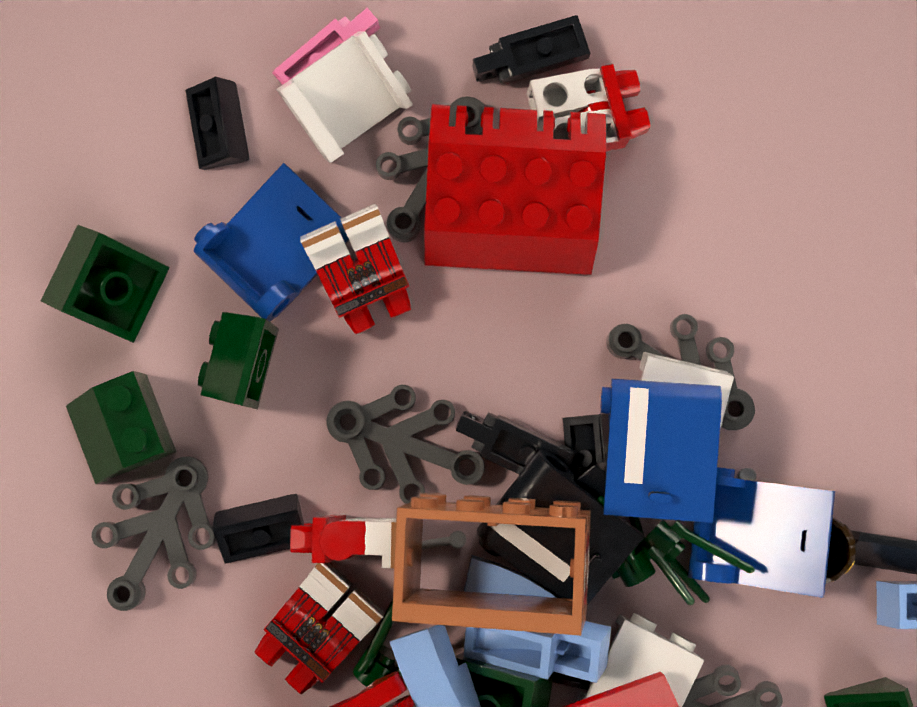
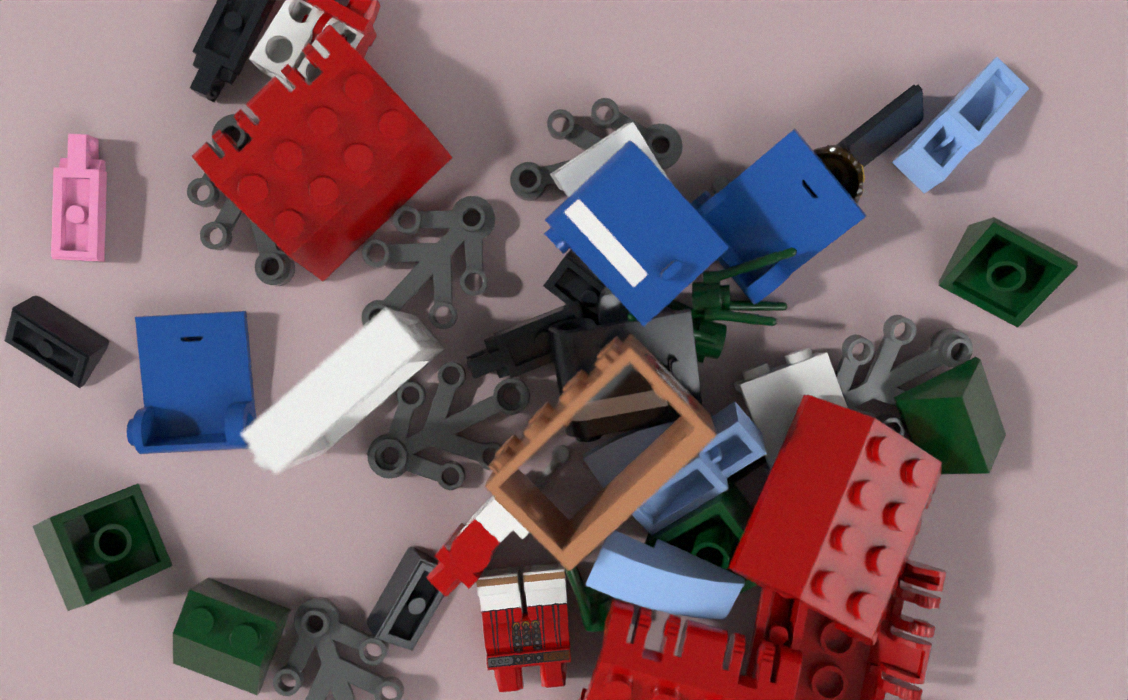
camera: 45 degrees left, 5 degrees up
(238, 359) = (261, 501): dark green slope -> none
(345, 93) = (123, 216): white panel -> none
(360, 281) = (288, 339): hips -> none
(370, 351) = (342, 391): none -> white window
(509, 326) = (434, 257): none -> dark grey plant

